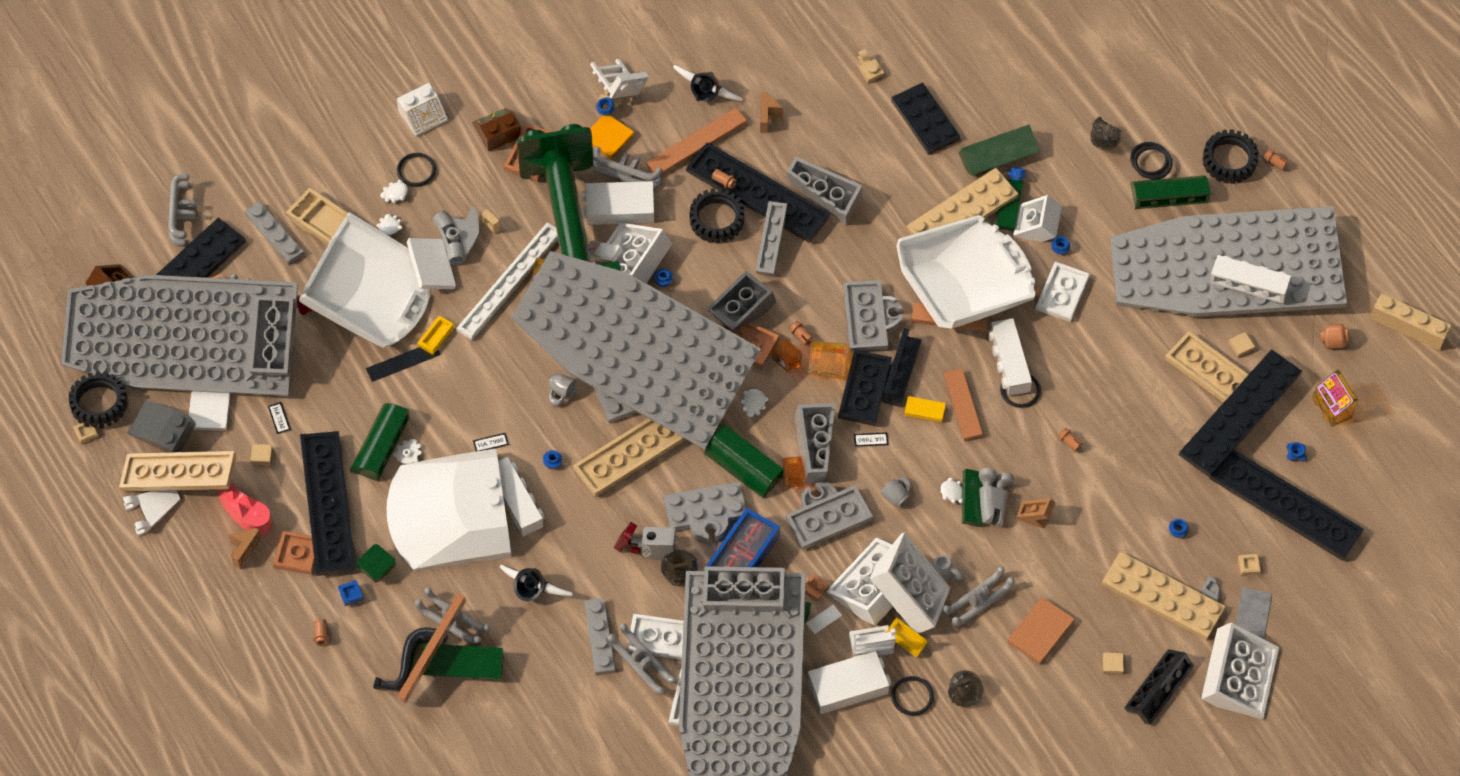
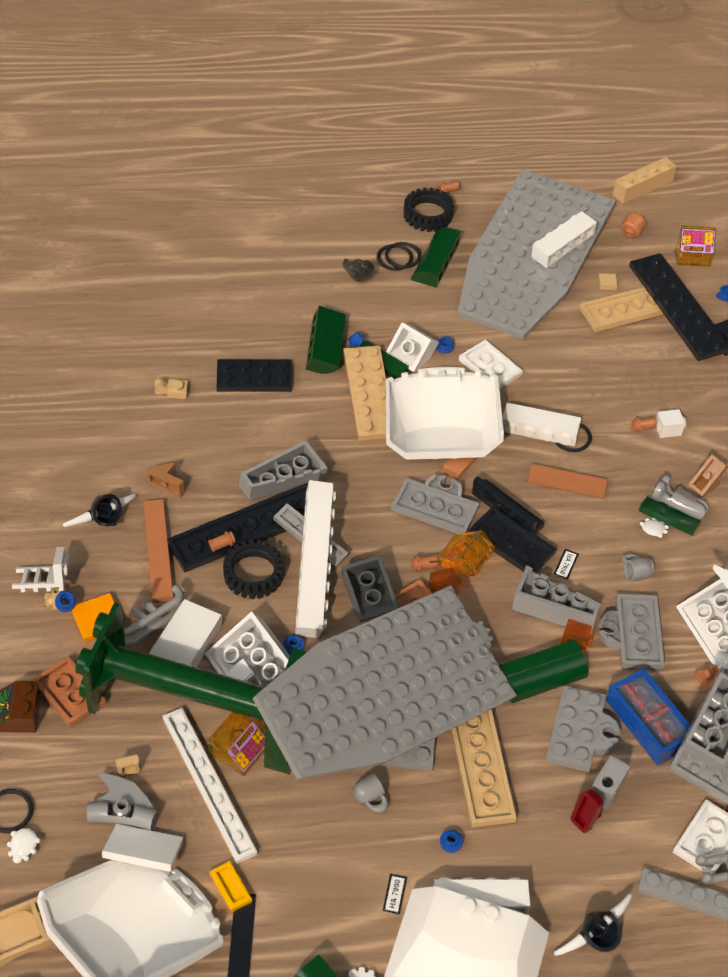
camera: 65 degrees left, 10 degrees down
(389, 224) = (60, 869): white piece -> none
(675, 566) = (645, 778): clear smoke hair -> none
(746, 248) = (314, 560): none -> white brick
(924, 409) = (557, 509): yellow tile -> none
(1083, 459) = (670, 423): none -> white brick

